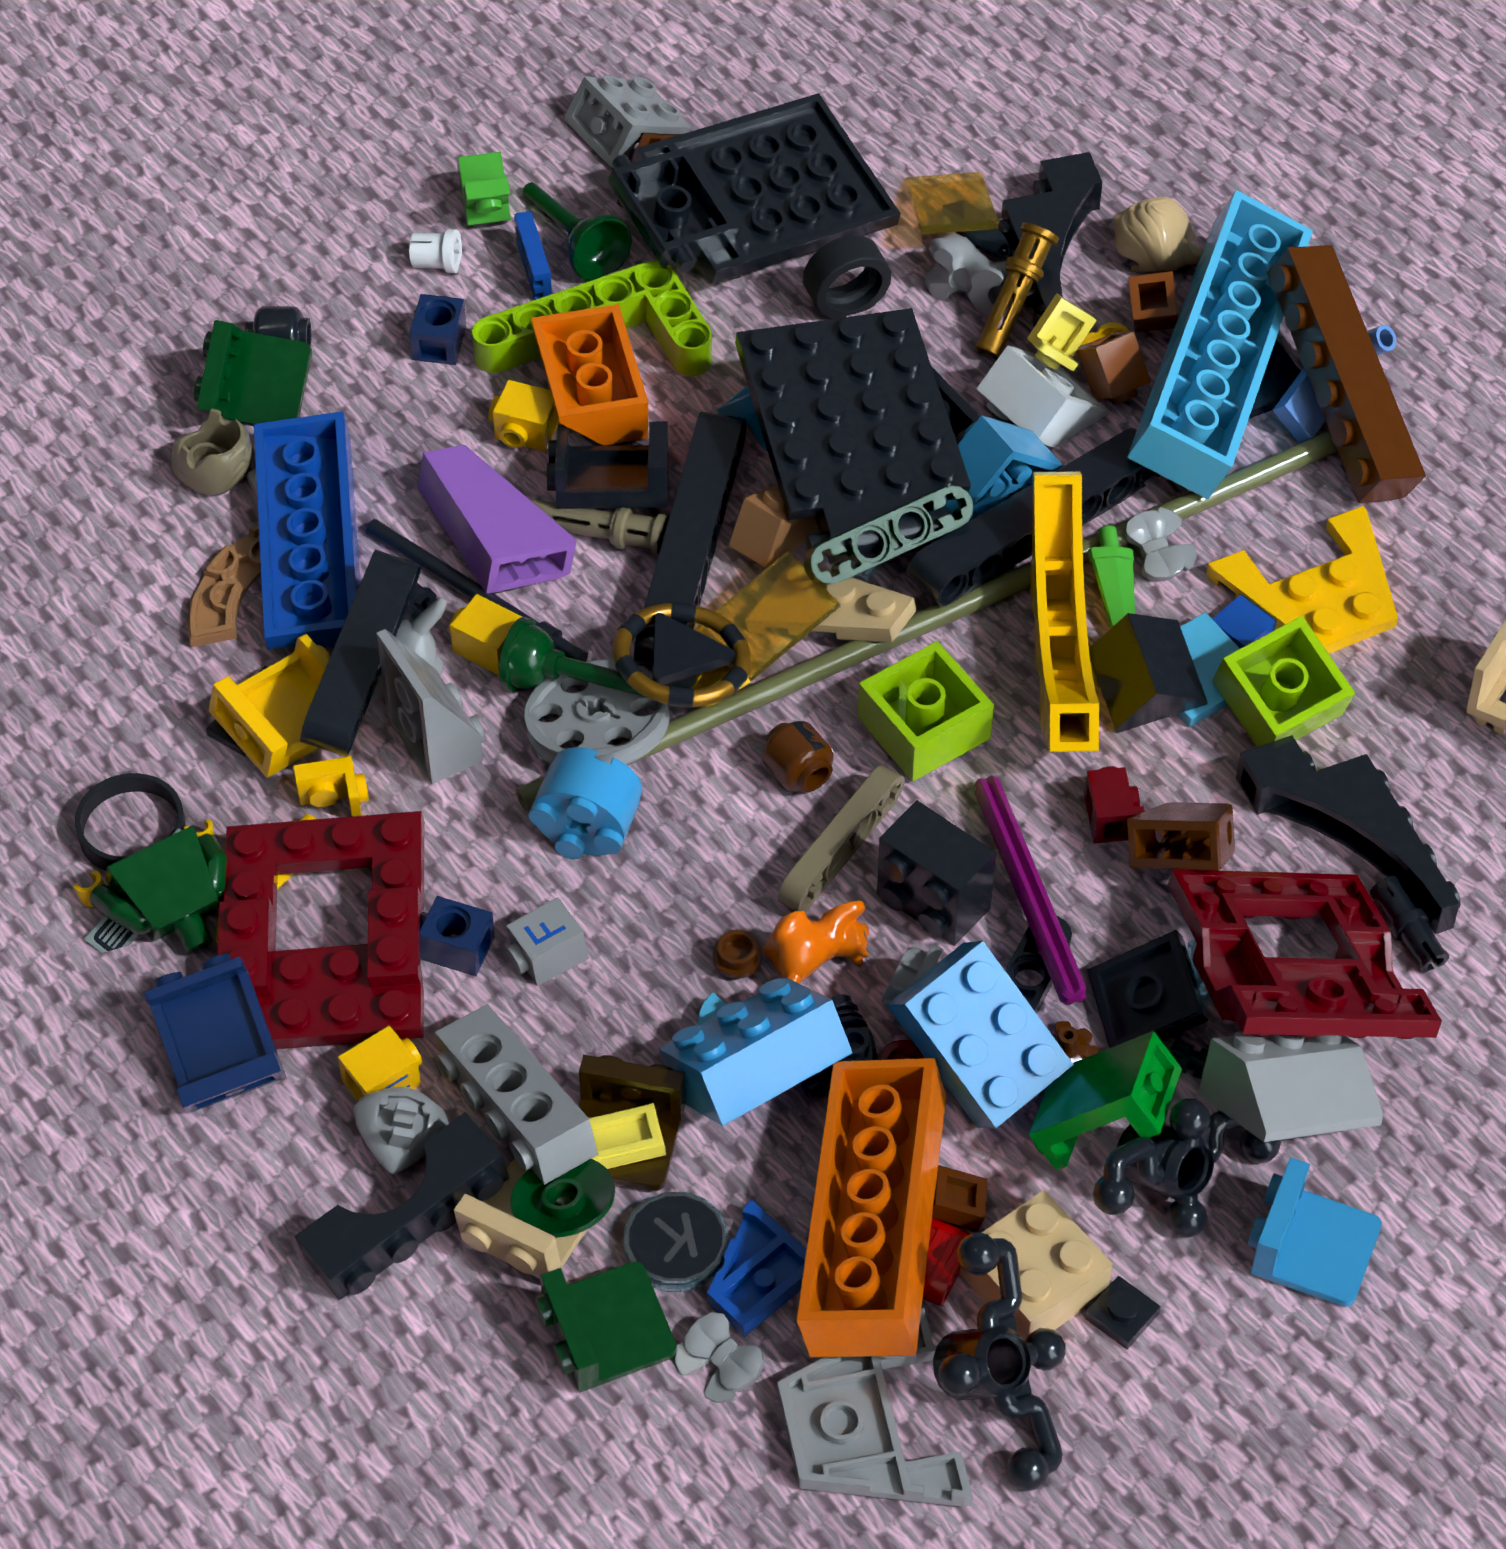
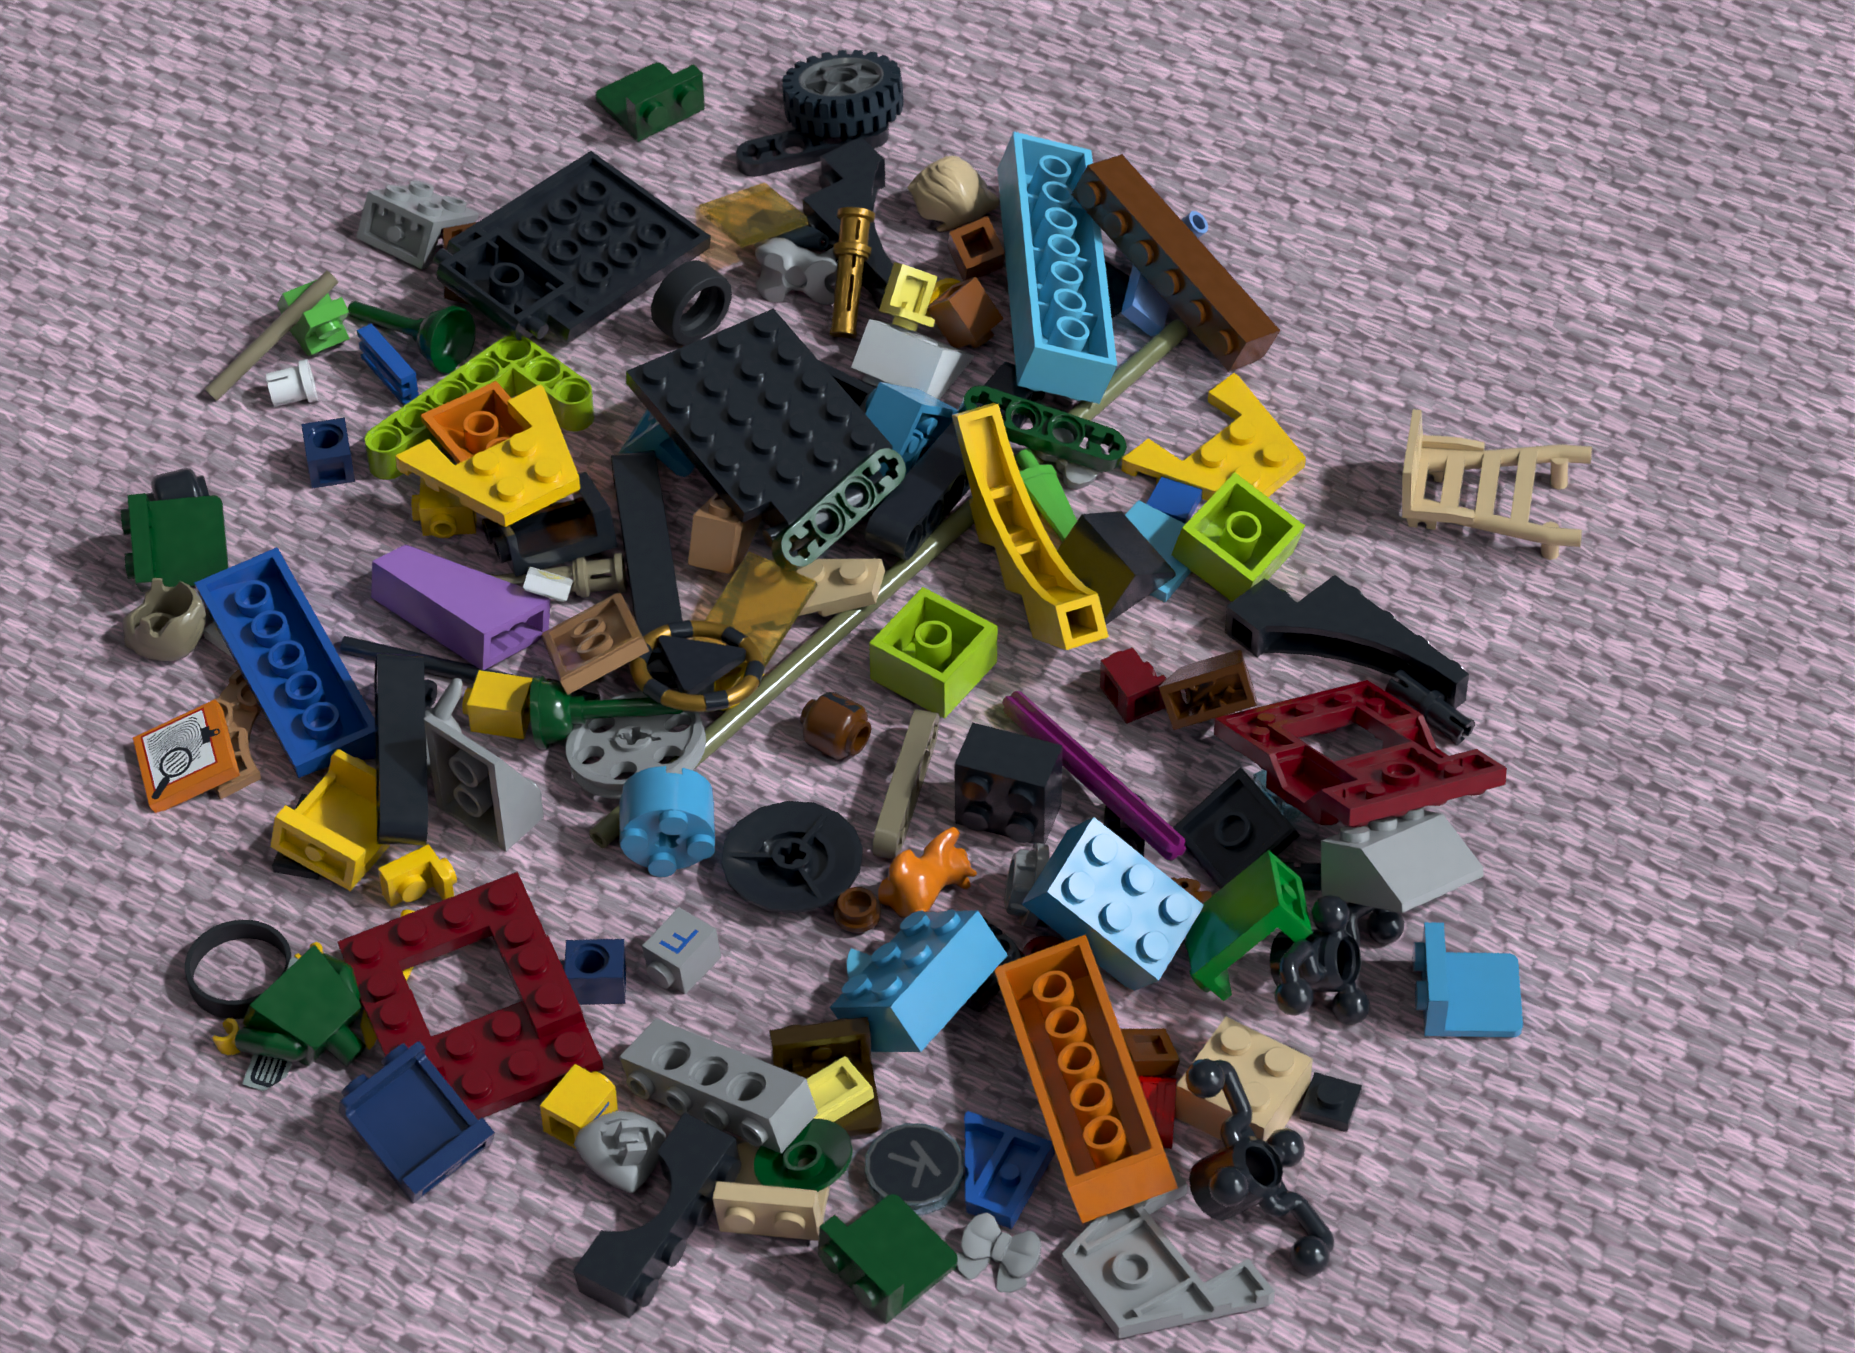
camera: 20 degrees left, 5 degrees down
(173, 595) = (186, 756): none -> tile
(433, 196) = (271, 336): none -> dark tan bar
(580, 526) = (547, 584): none -> white tile
(587, 406) = (511, 476): none -> yellow wing
(596, 600) = (594, 643): none -> medium nougat tile
(694, 853) = (767, 841): none -> black piece
(907, 56) = (653, 98): none -> dark green bracket
(1044, 142) = (812, 148): none -> black beam
(1093, 101) = (842, 93): none -> black wheel
(1139, 502) = (1044, 421): none -> dark green beam

